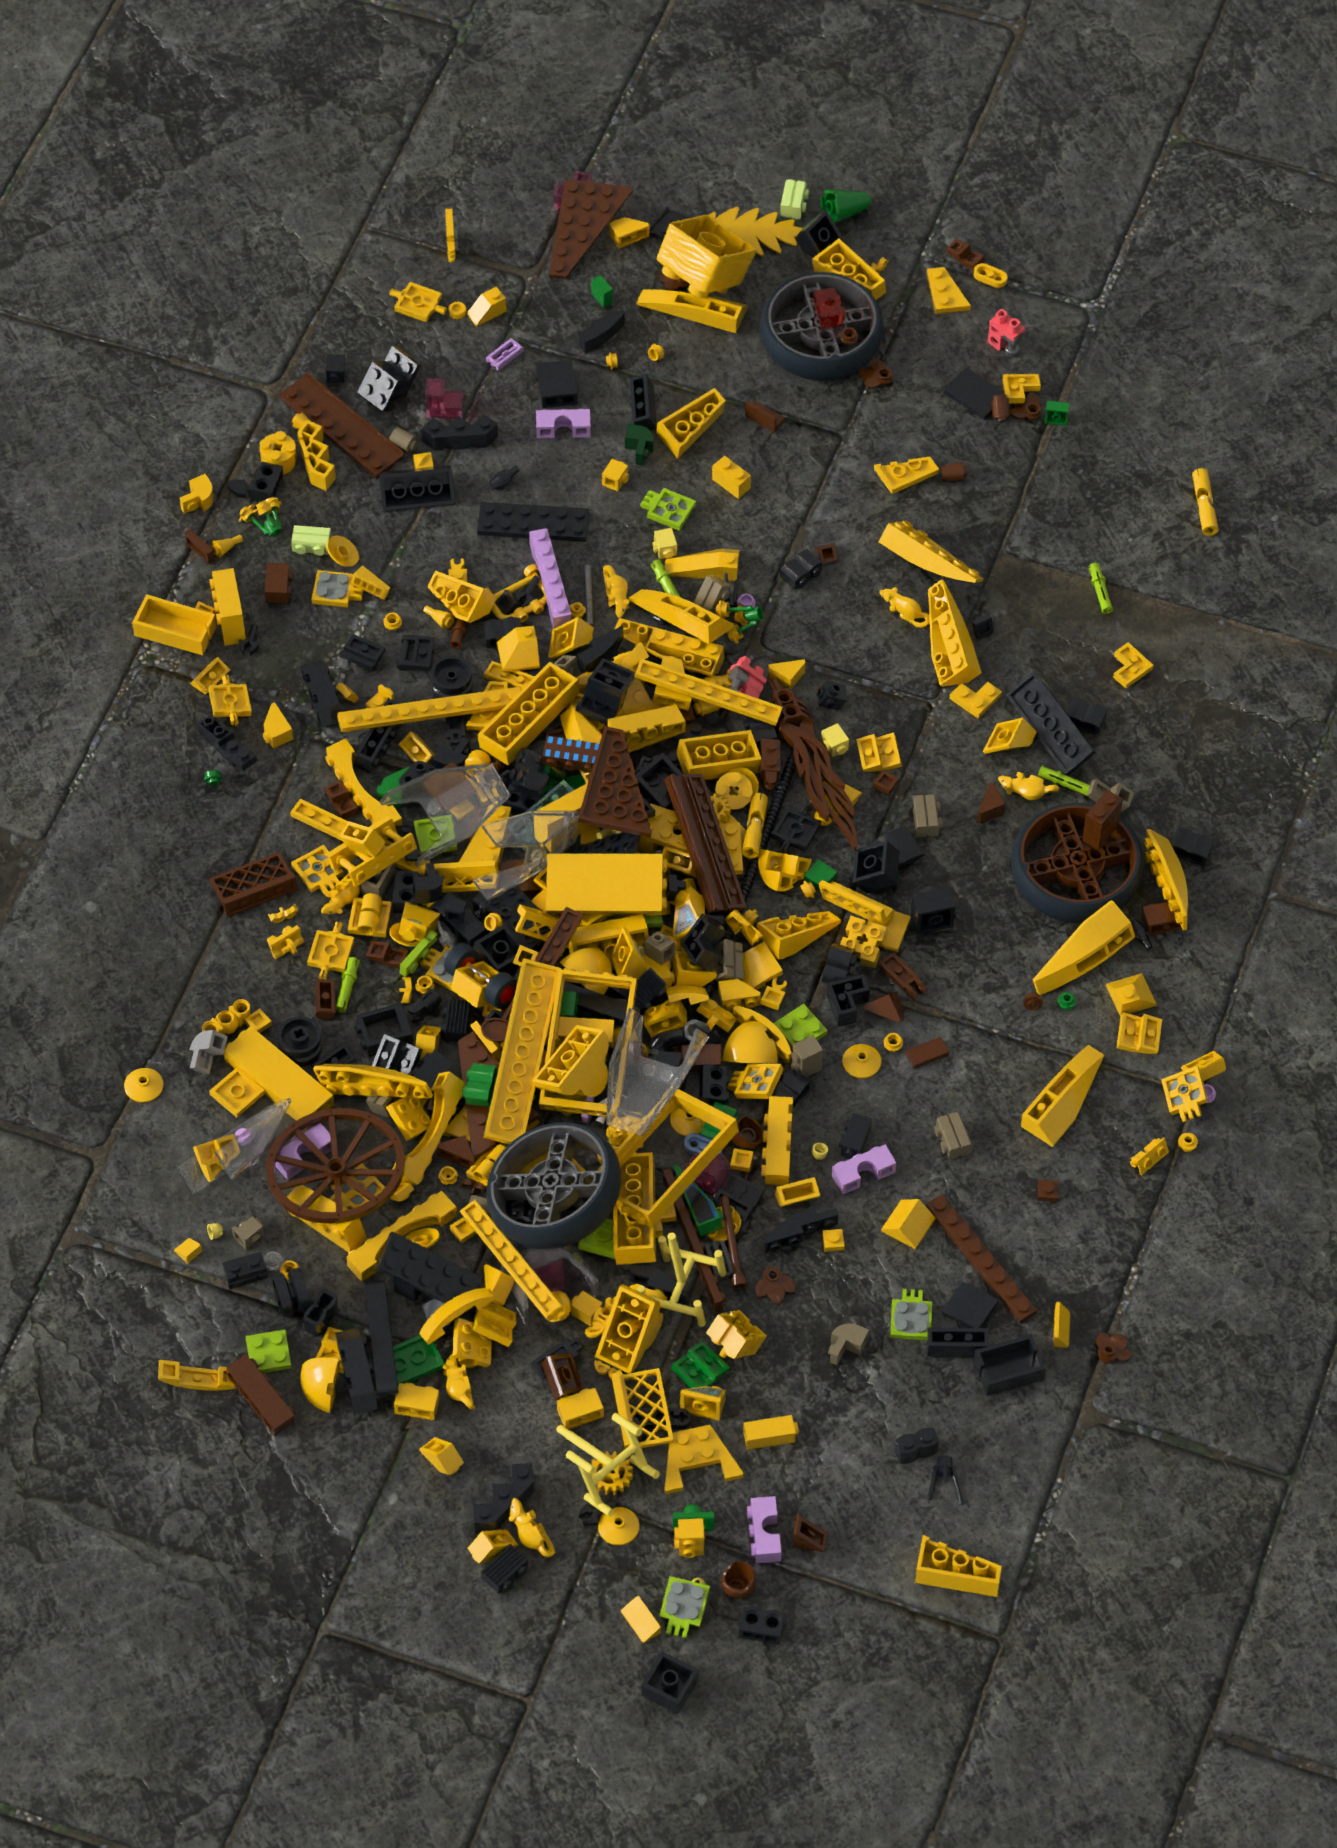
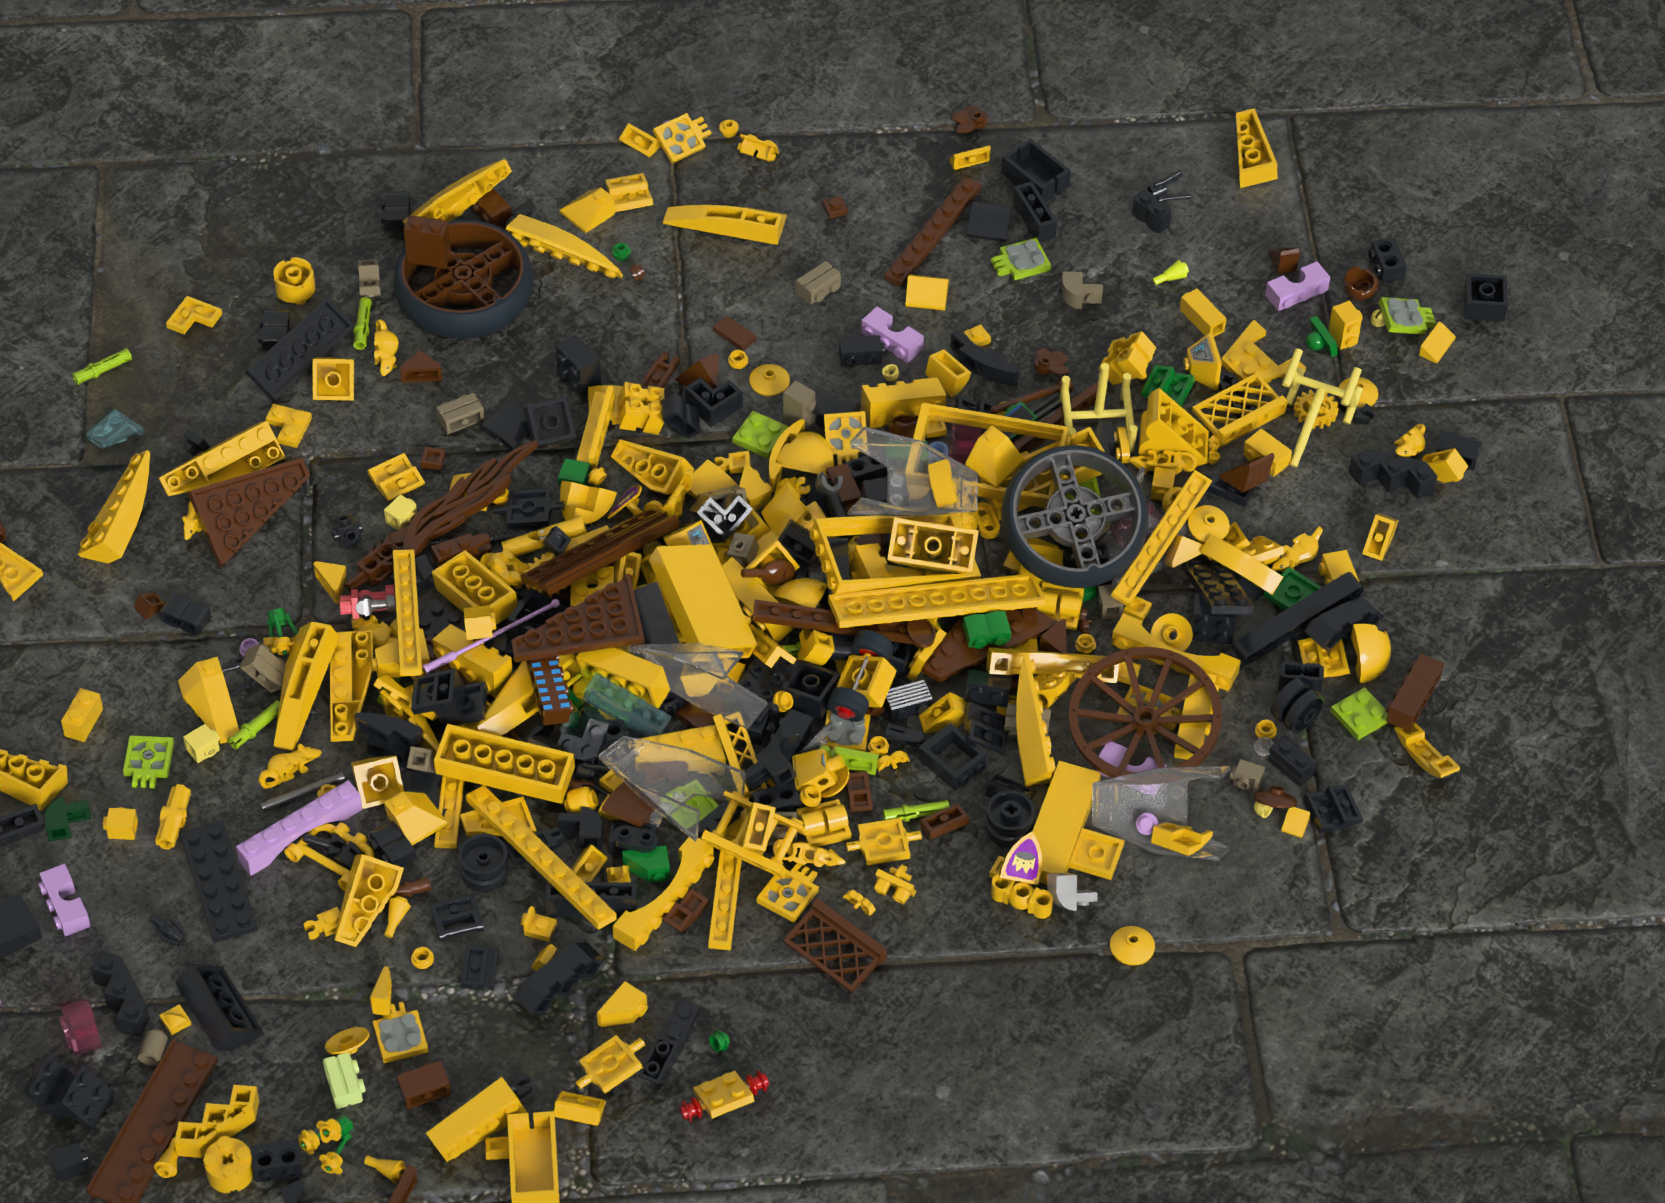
camera: 115 degrees left, 5 degrees down
(163, 761) = (723, 1095): none -> yellow plate
(187, 1283) = (1333, 809): none -> black slope
(207, 1239) = (1275, 798): none -> reddish brown dish
(244, 1019) = (1023, 861): none -> shield
(391, 904) = (810, 796): none -> yellow plate
(395, 764) = (618, 874): none -> yellow tile
(514, 1310) = (1201, 528): none -> yellow dish
(605, 507) = (173, 816): none -> yellow piece
(617, 951) = (773, 572): none -> reddish brown piece
(633, 1099) = (942, 483): none -> yellow slope
(639, 682) = (427, 668): none -> lavender piece
(647, 1151) = (994, 457): none -> yellow slope
(664, 727) = (479, 622): none -> yellow brick
(734, 819) = (556, 541): none -> black tile
(766, 900) = (630, 500): none -> shield
(833, 1435) = (1176, 271): none -> neon yellow cone
(893, 633) = (242, 505): none -> reddish brown wing
(1027, 580) = (113, 429): none -> clear light blue wing
(1133, 743) = (294, 281): none -> yellow brick

